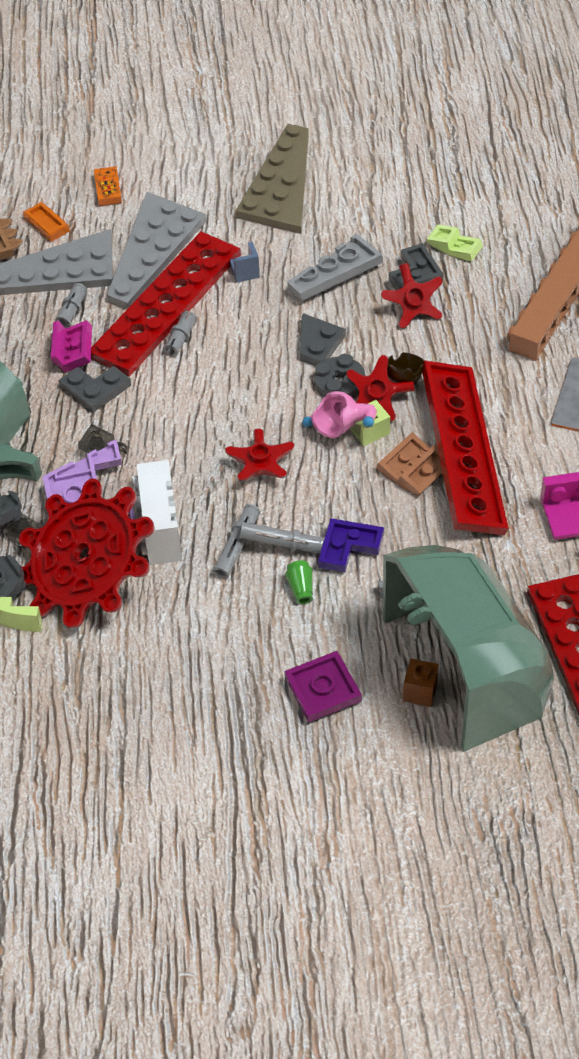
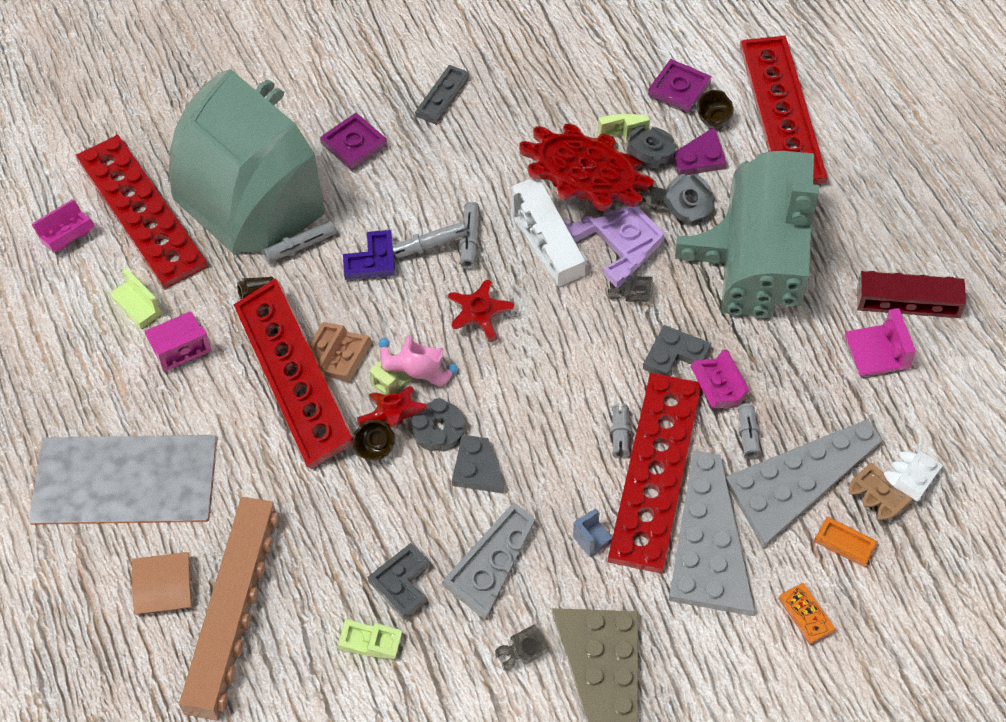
camera: 160 degrees right, 5 degrees up
(193, 727) = (442, 94): none -> dark grey tile
(300, 580) = (402, 216): bright green cone -> none
(333, 209) = (526, 645): none -> clear smoke plate
(414, 297) = (391, 533): red animal -> none
(481, 542) = (249, 285): none -> dark brown cone

